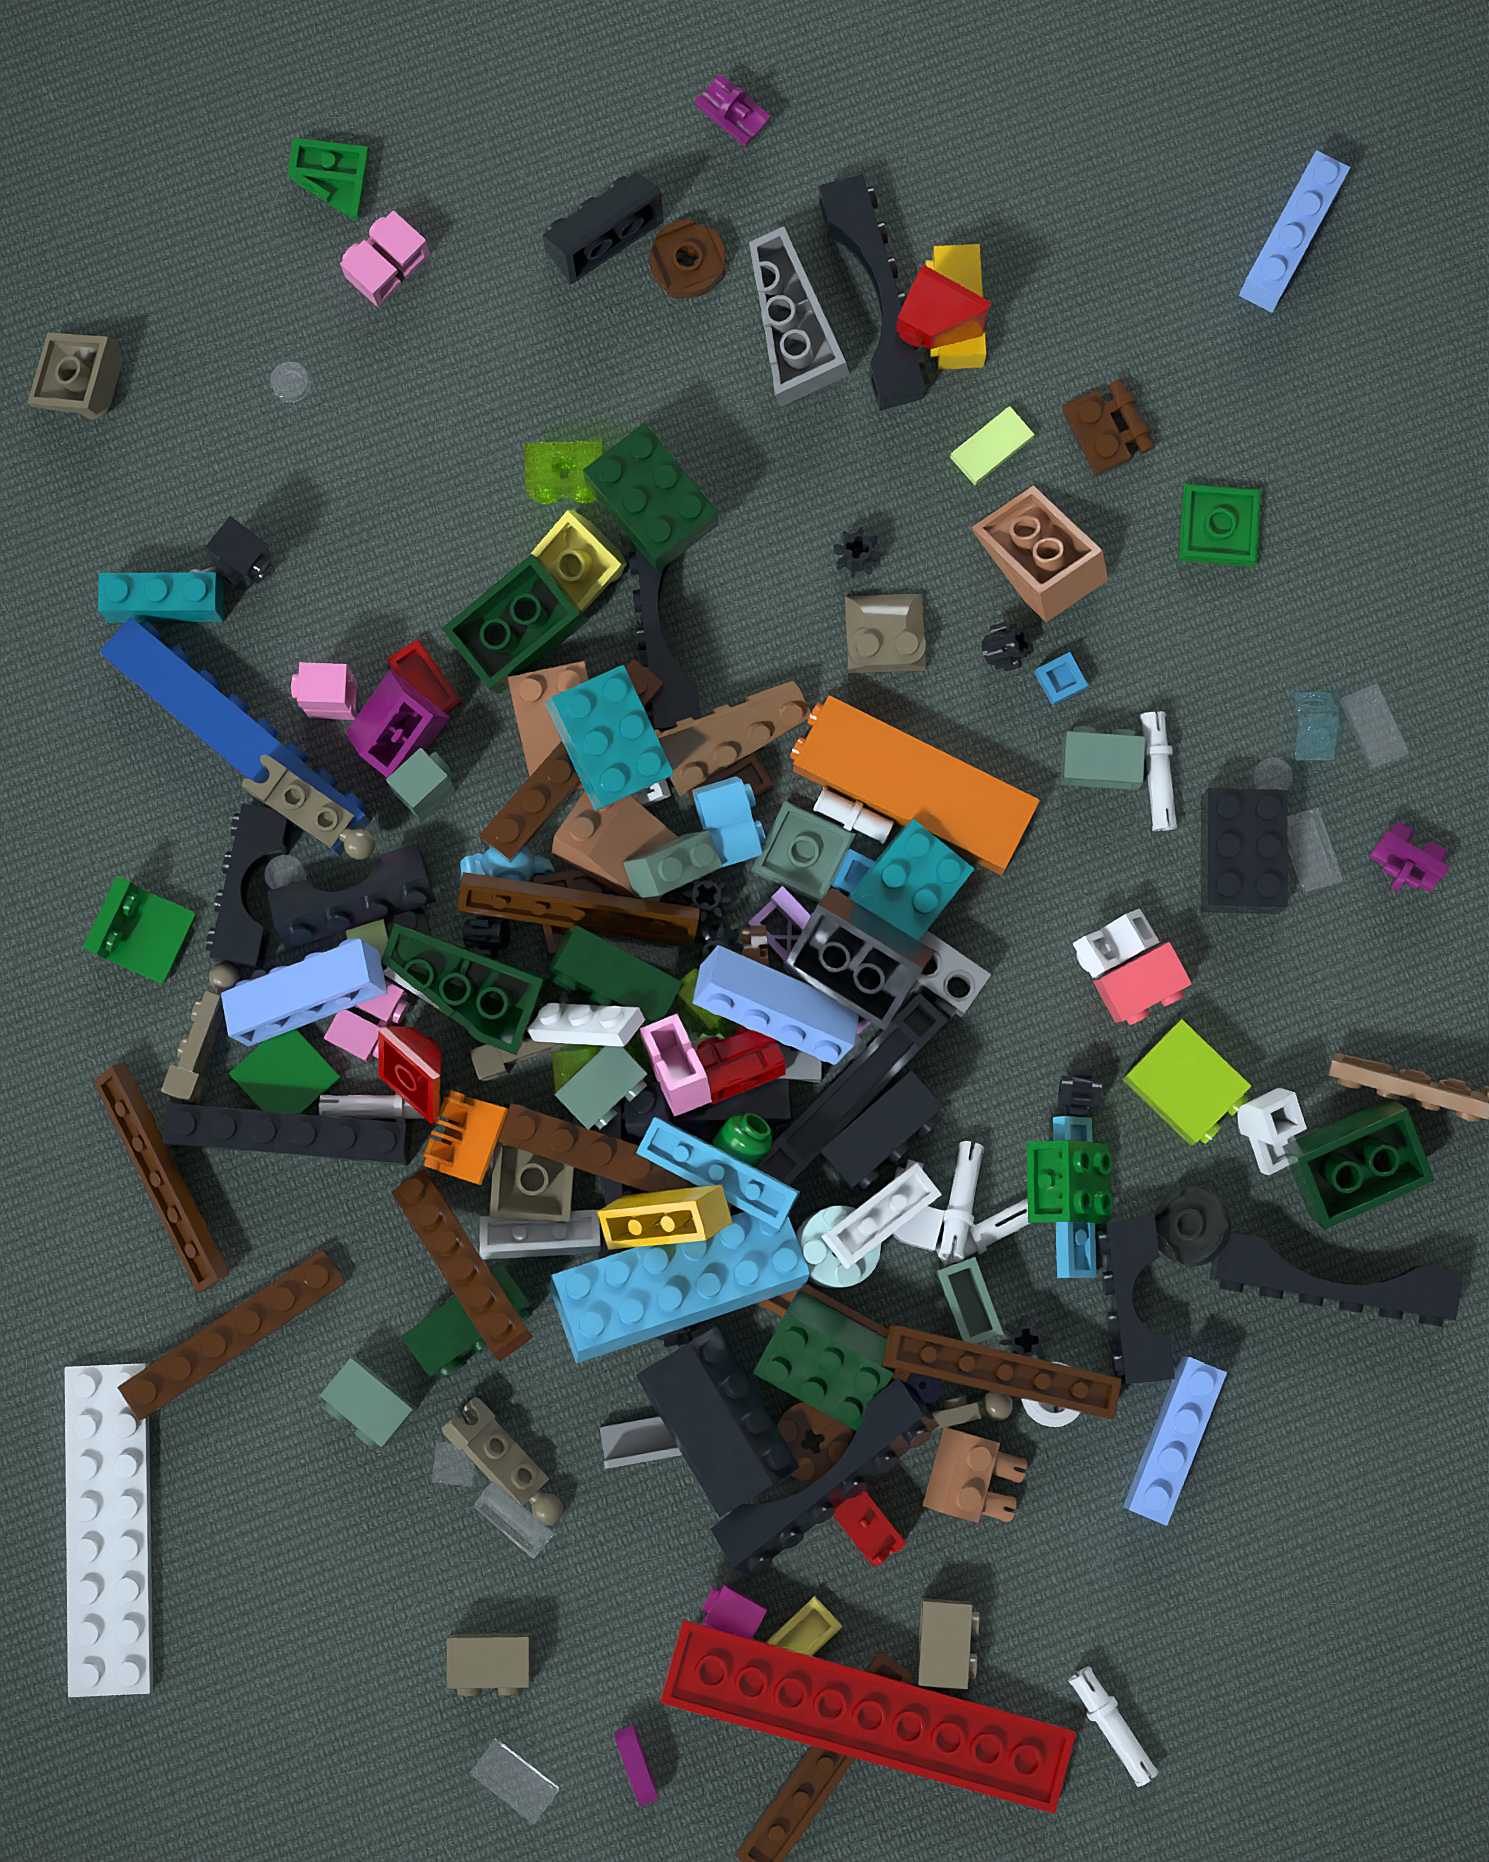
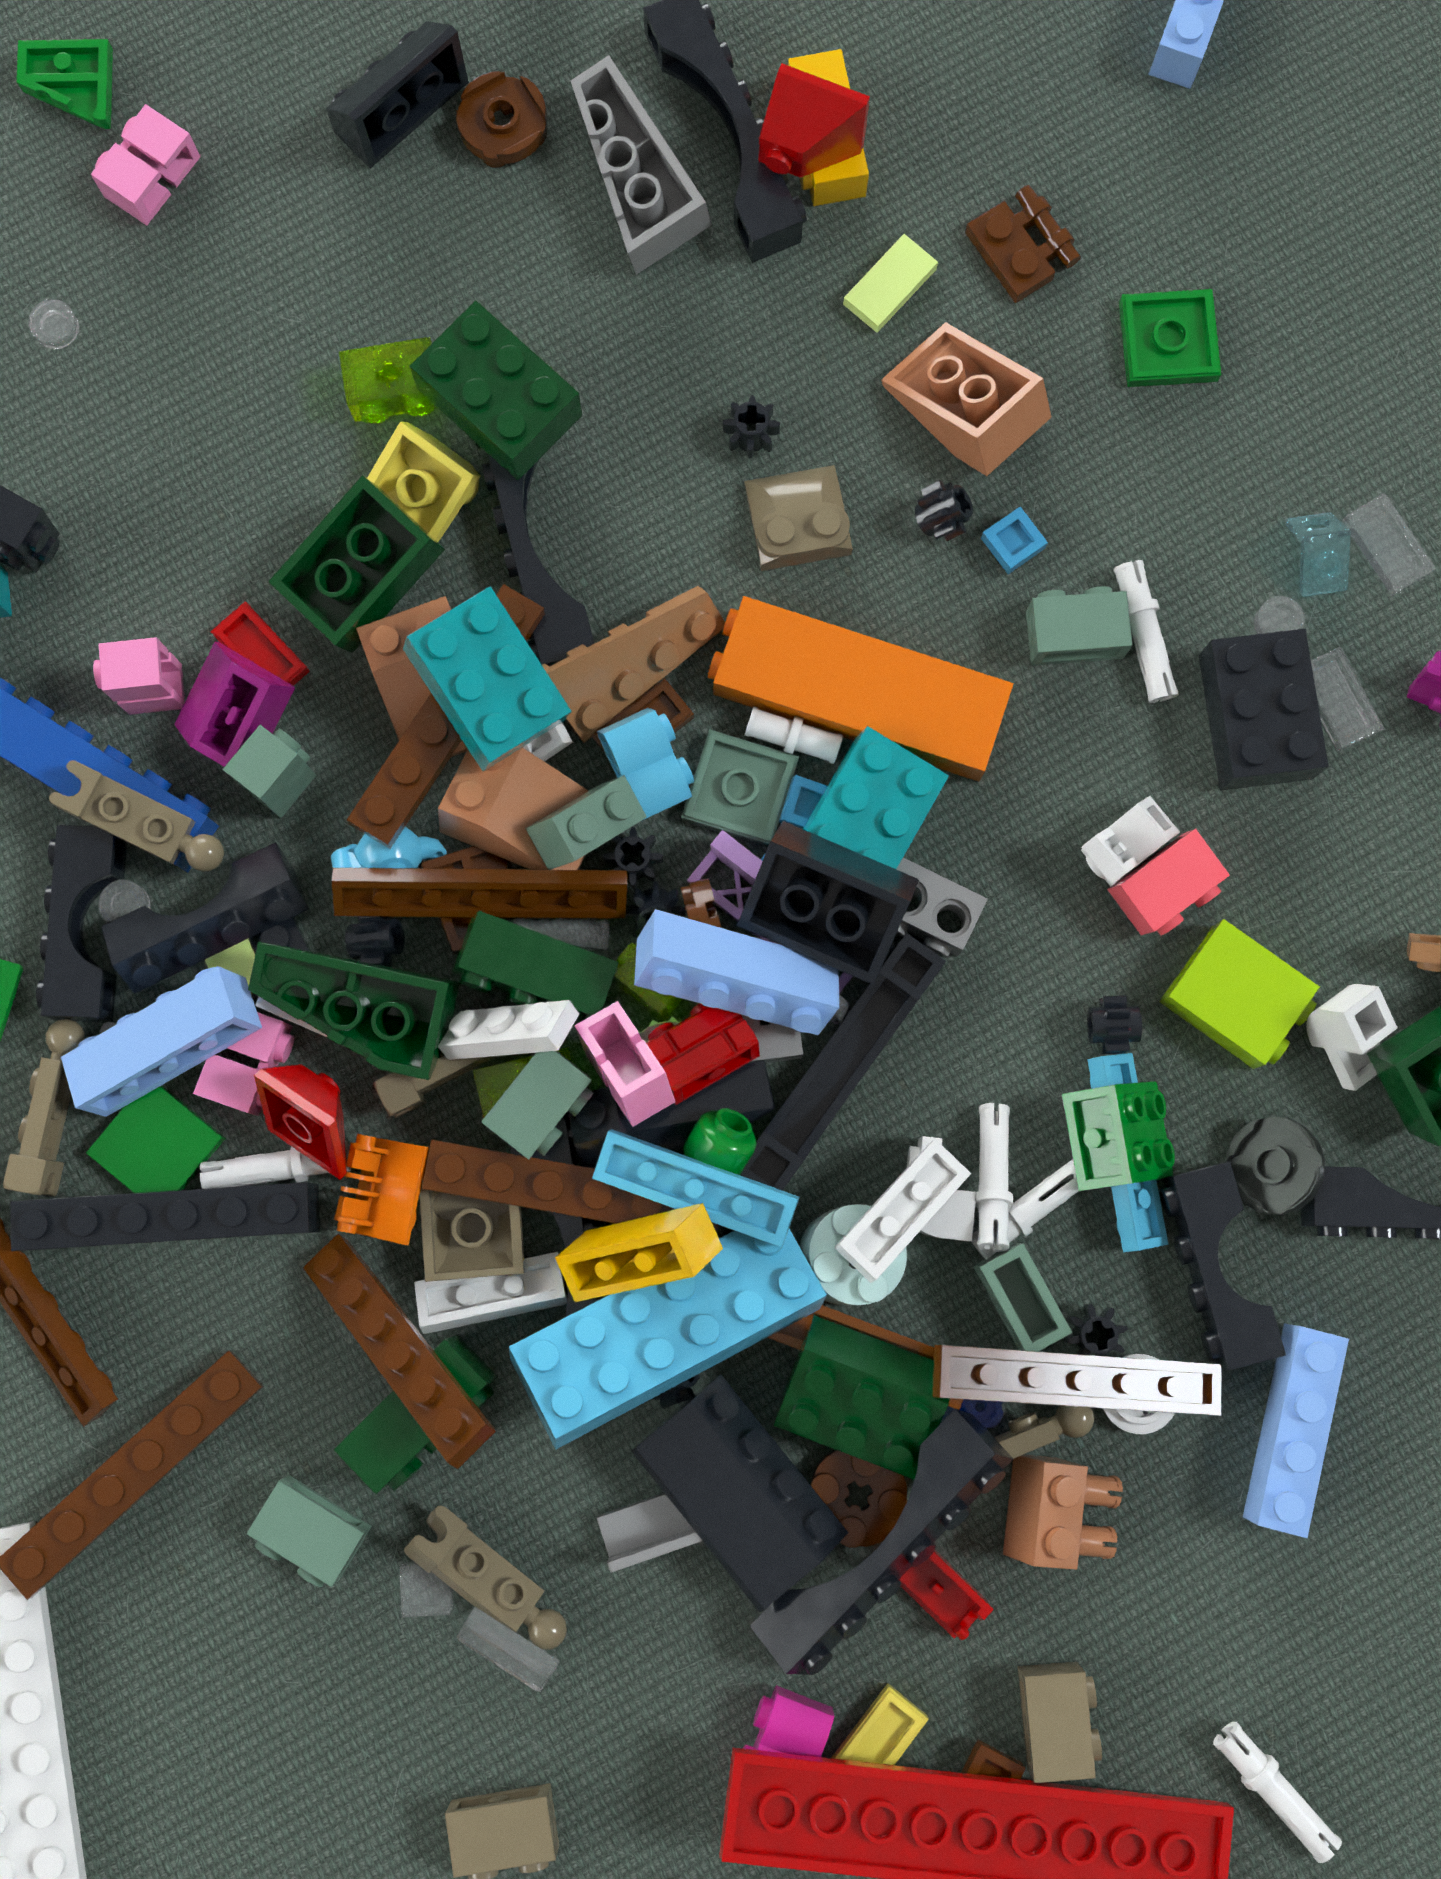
camera: 10 degrees left, 0 degrees up
(882, 1132) = (888, 1108): black brick -> none

